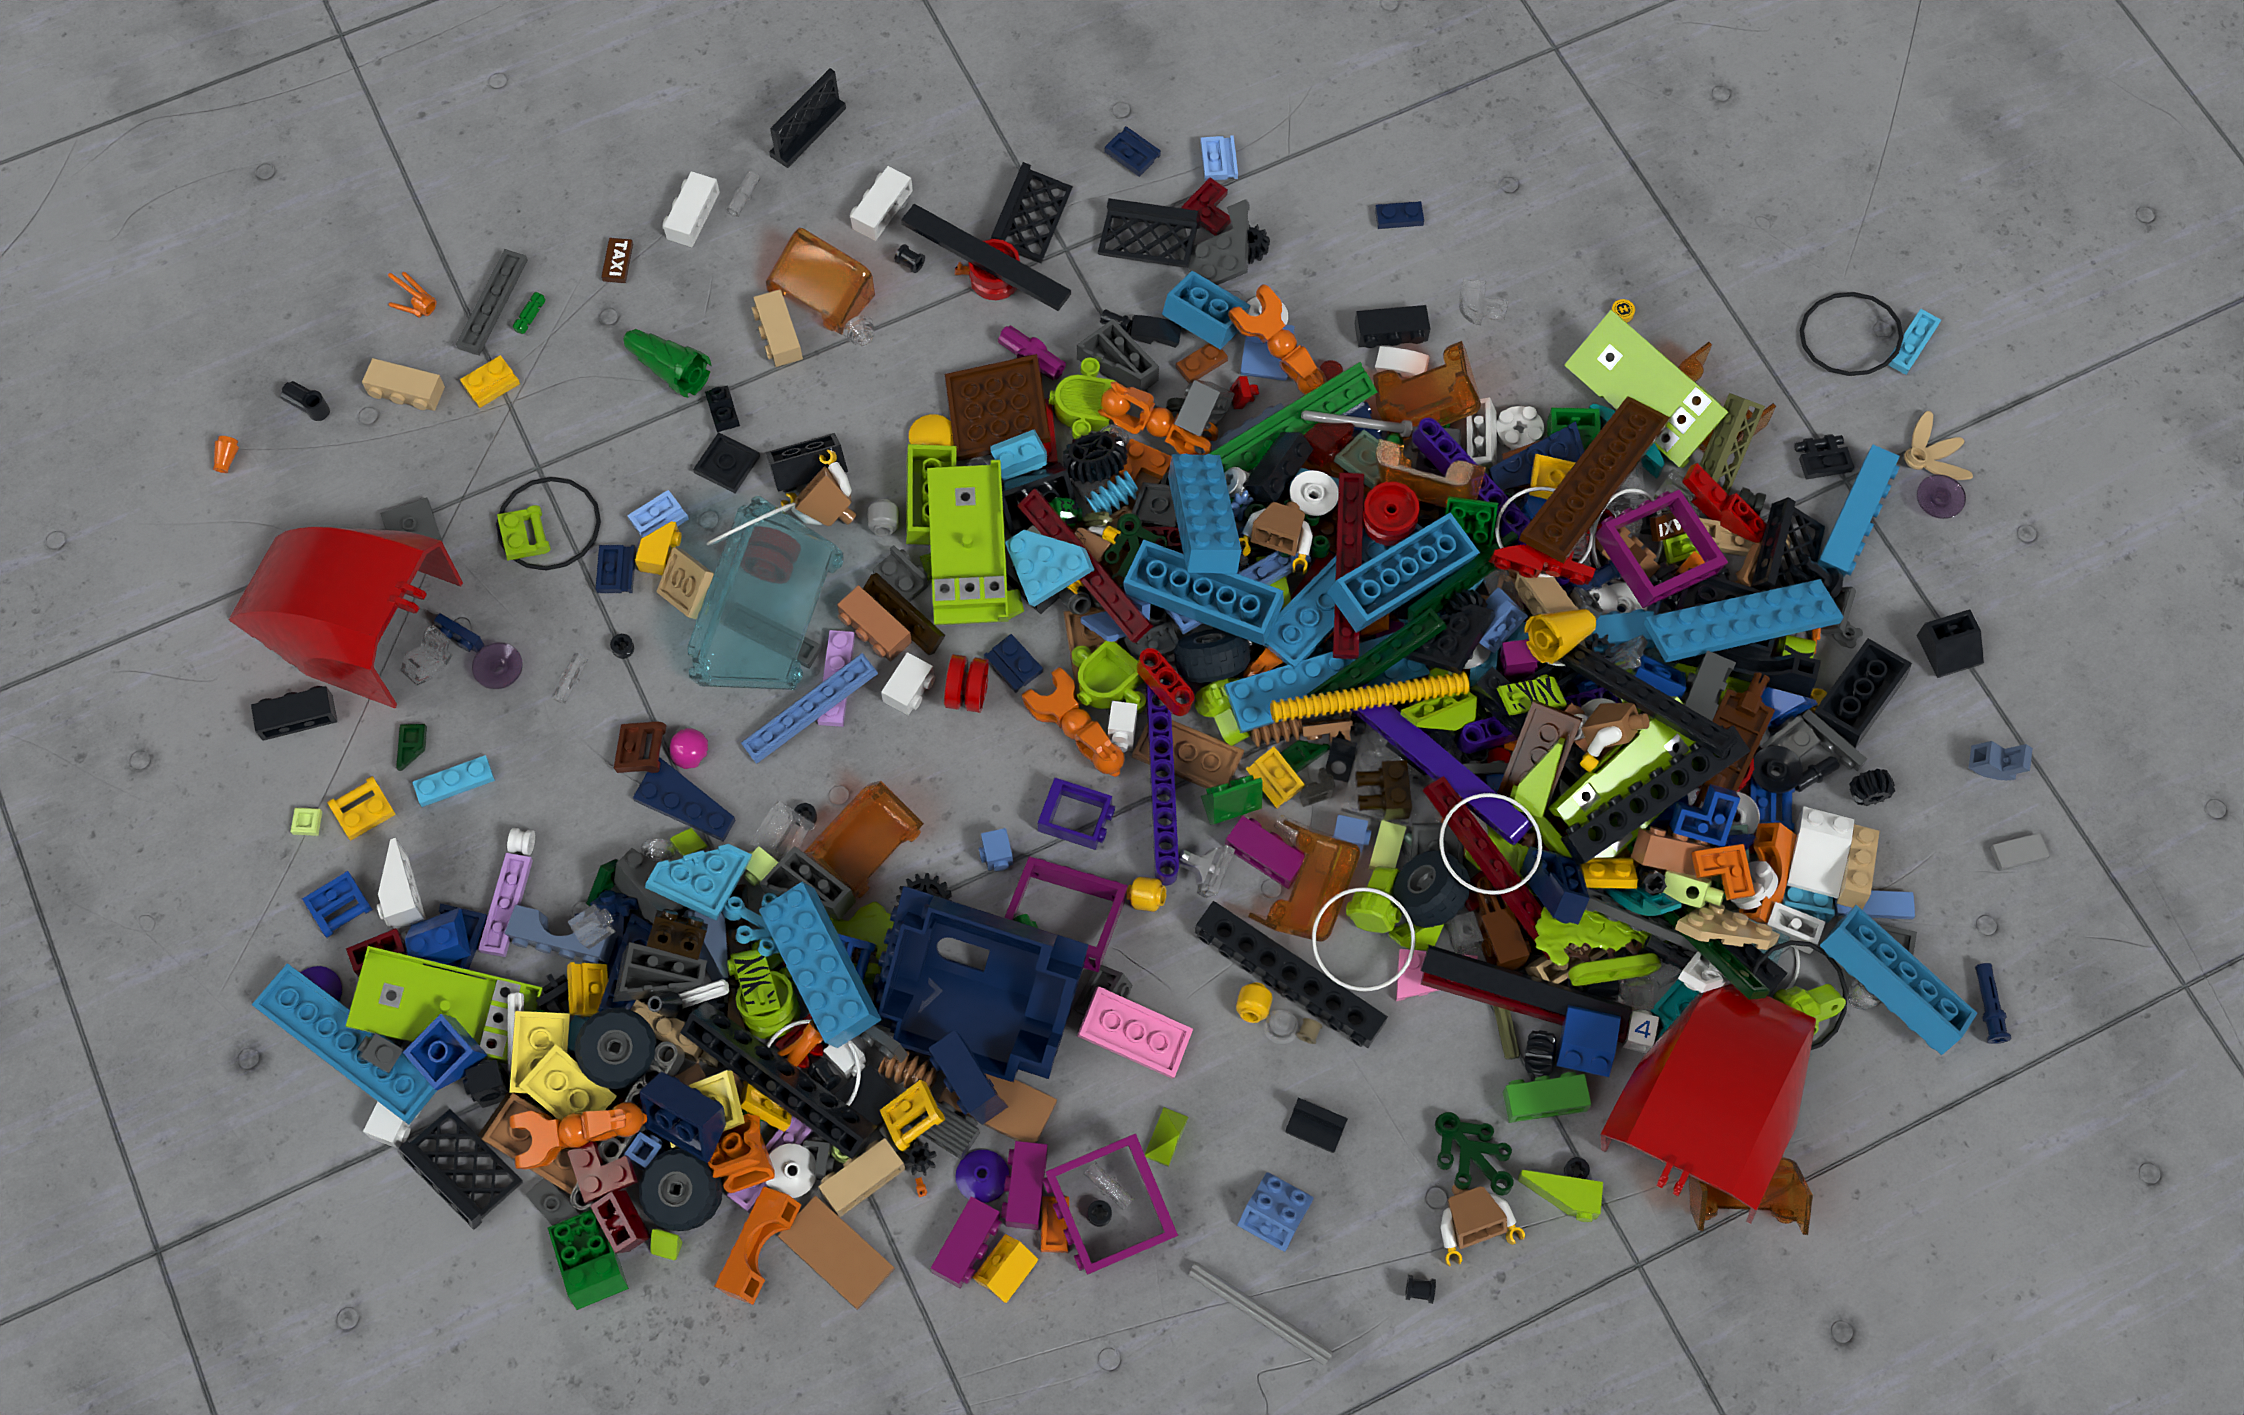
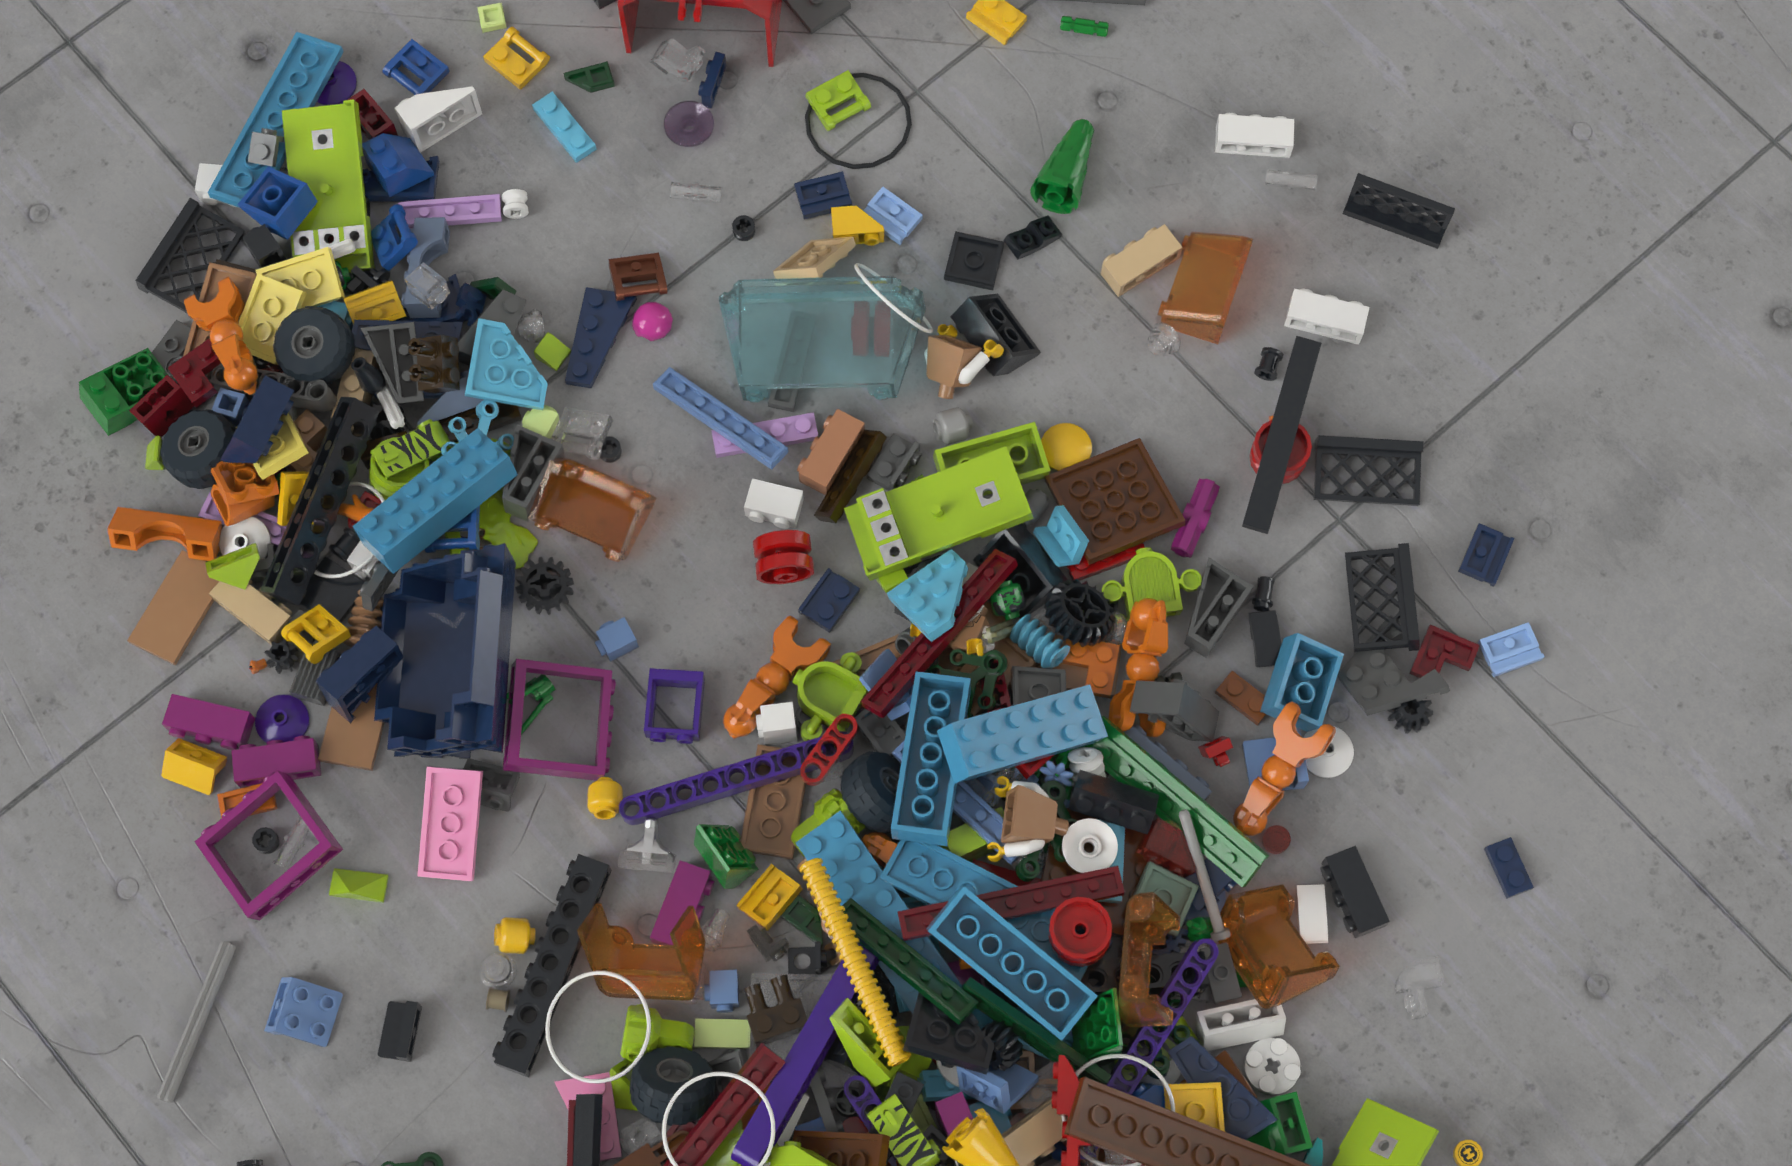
camera: 75 degrees right, 5 degrees up
(522, 966) = (387, 241): none -> blue plate
(617, 260) = (1172, 86): reddish brown tile -> none
(818, 1175) = (235, 567): none -> lime slope

